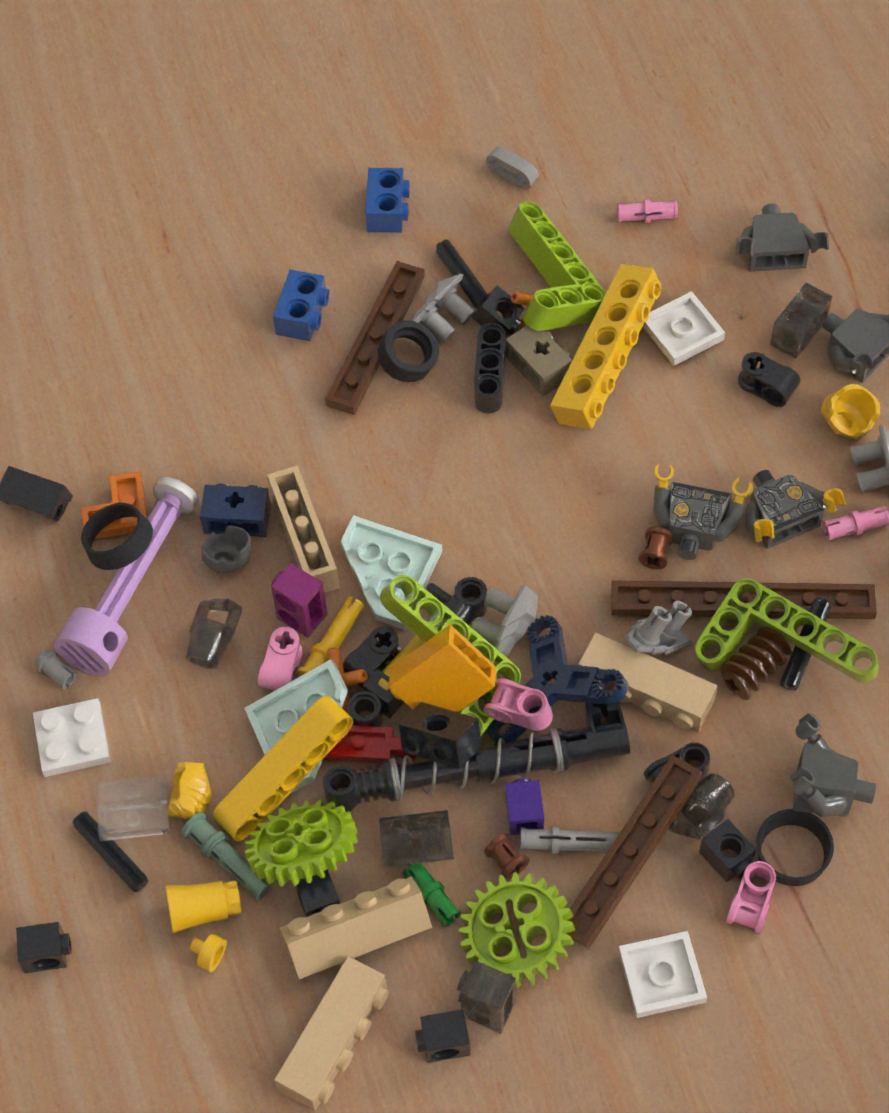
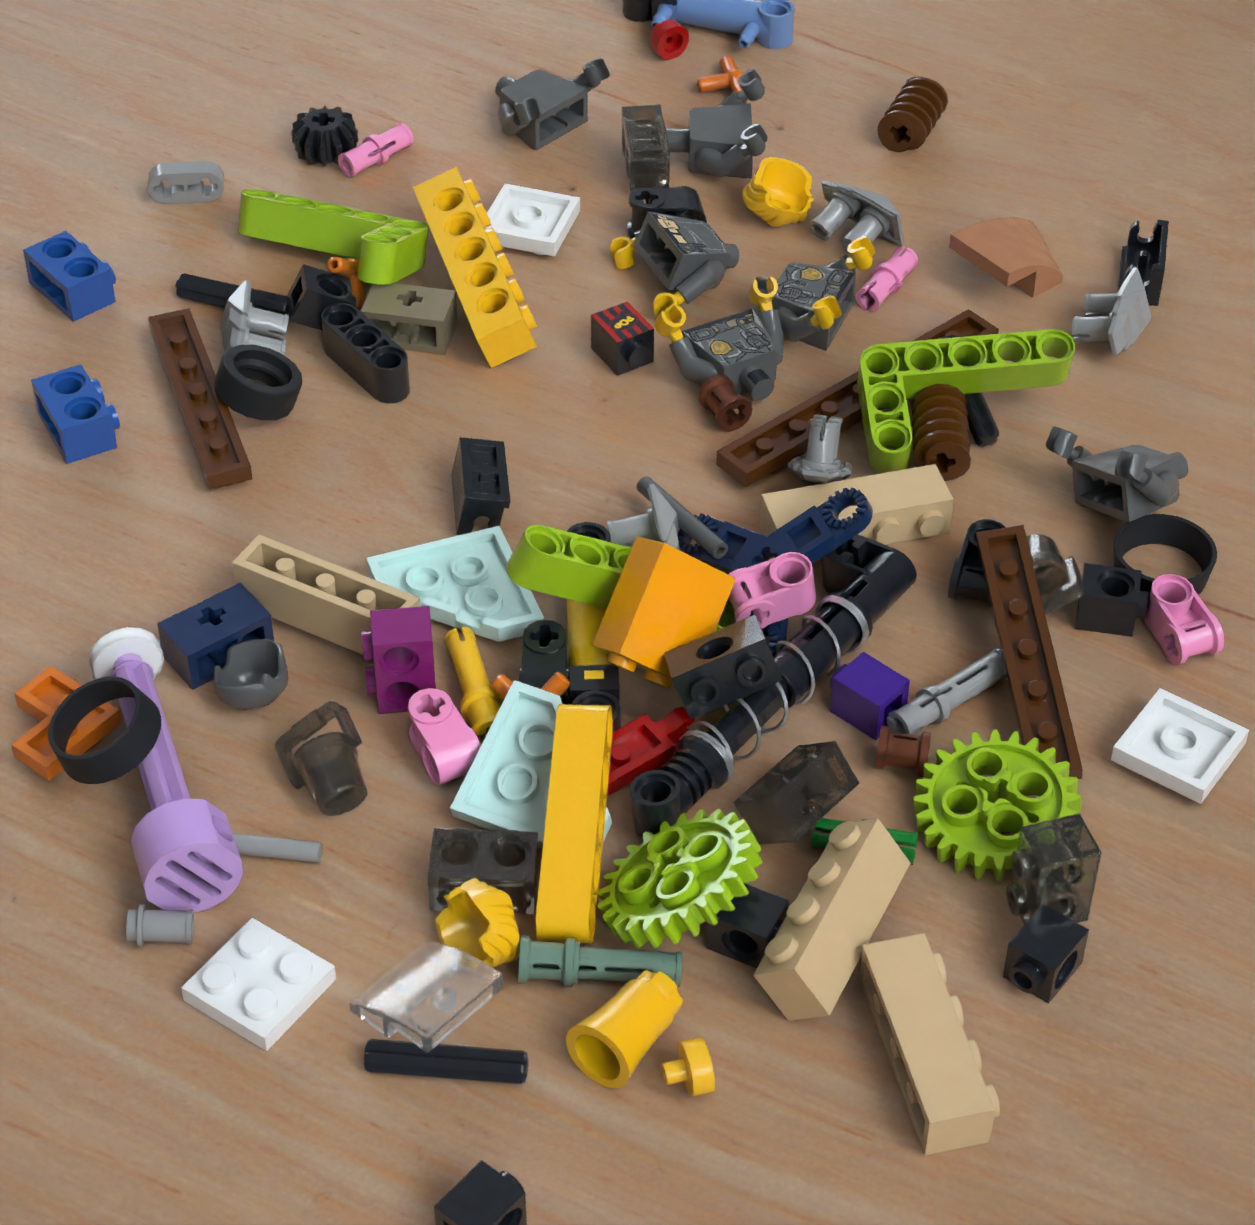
camera: 45 degrees left, 15 degrees down
(146, 659) = (279, 848): none -> light grey bar
(221, 760) = (495, 857): none -> clear smoke brick
(459, 507) = (479, 483): none -> black hinge
(541, 613) = (688, 522): none -> dark grey piece
(624, 181) = (324, 135): none -> black gear
(642, 458) = (622, 338): none -> black brick
(737, 423) = (682, 255): none -> dark grey torso

